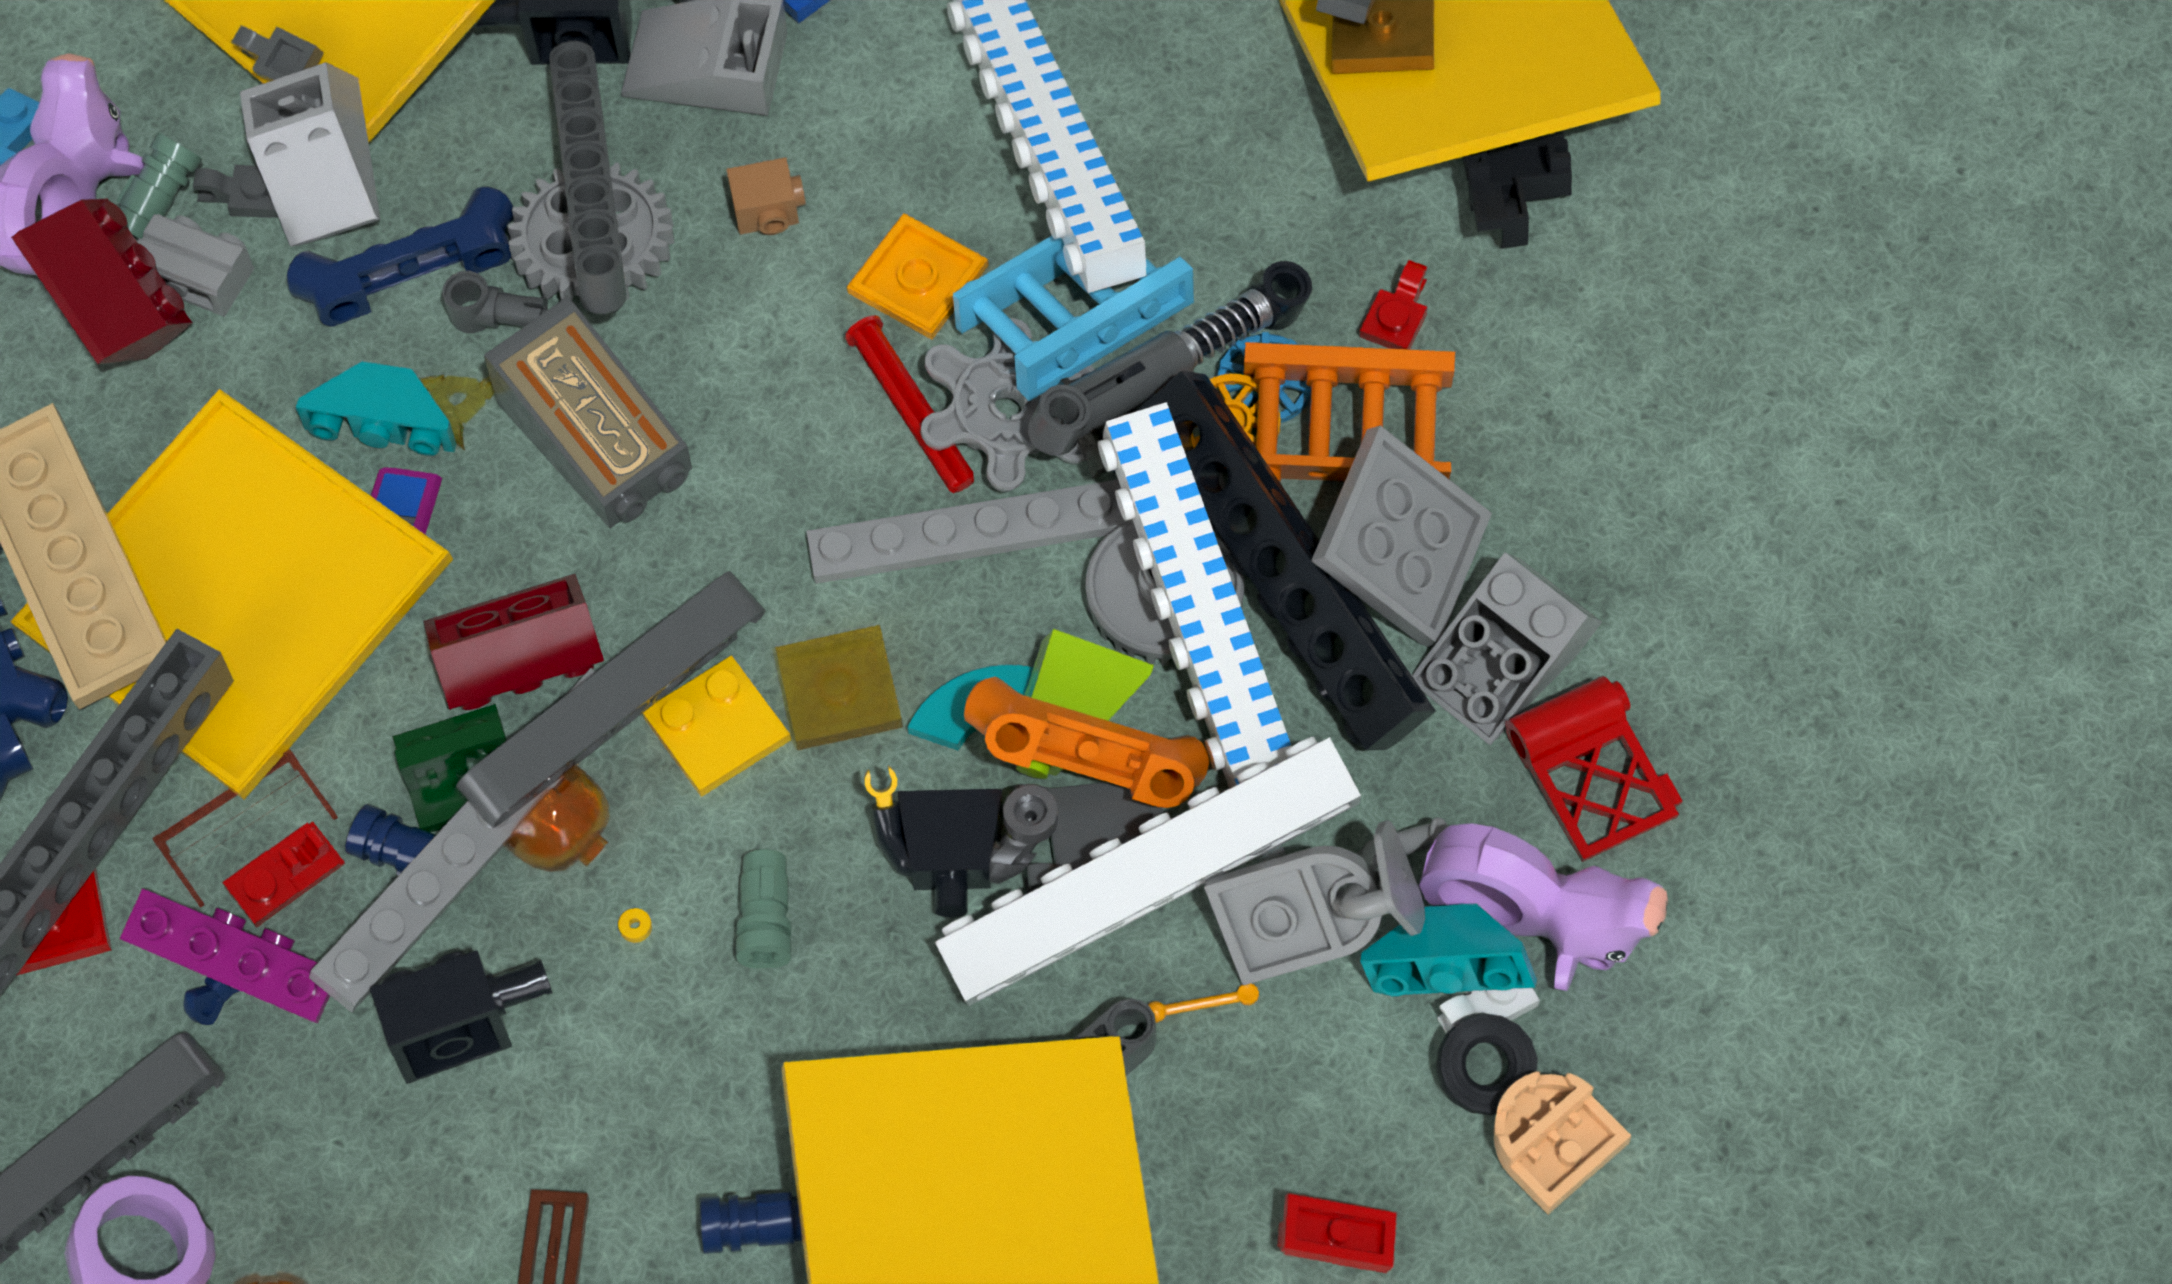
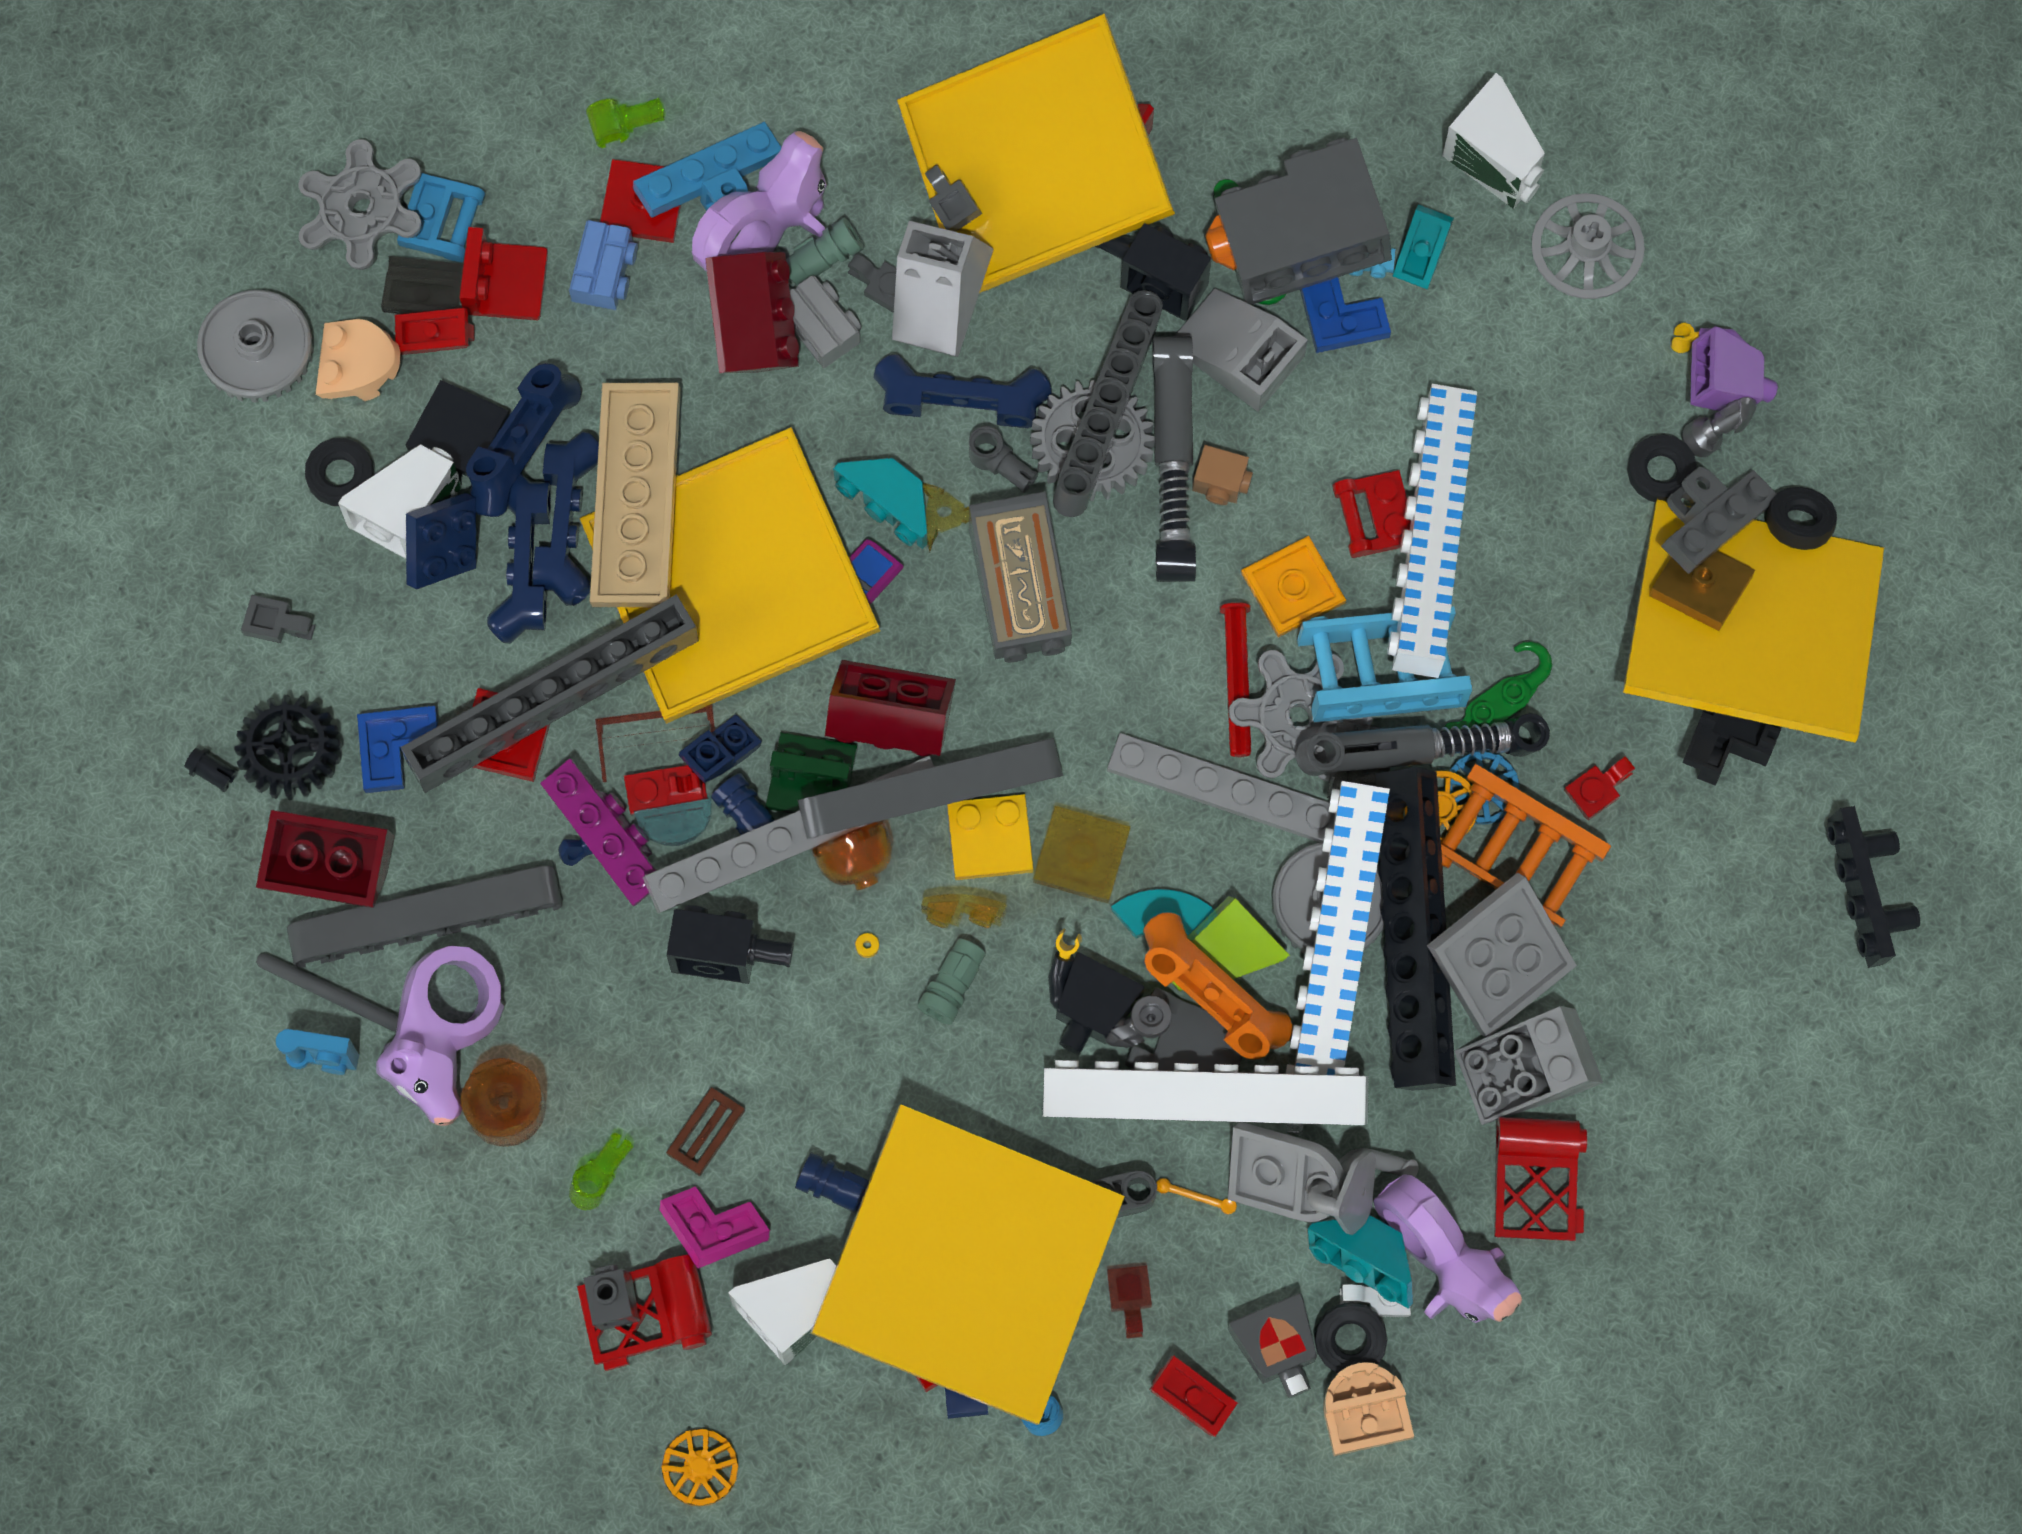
camera: 25 degrees right, 10 degrees up
(317, 905) = (675, 823): none -> clear light blue plate
(329, 790) = (720, 750): none -> dark blue slope
(644, 108) = (1174, 455): none -> piece
(711, 827) = (949, 909): none -> clear yellow slope
(973, 139) = (1386, 505): none -> red plate
(1190, 1157) = (1129, 1293): none -> clear red plate
(1237, 263) = (1508, 695): none -> green piece
(1402, 1116) = (1277, 1343): none -> dark grey torso
(1772, 278) = (1863, 899): none -> black plate

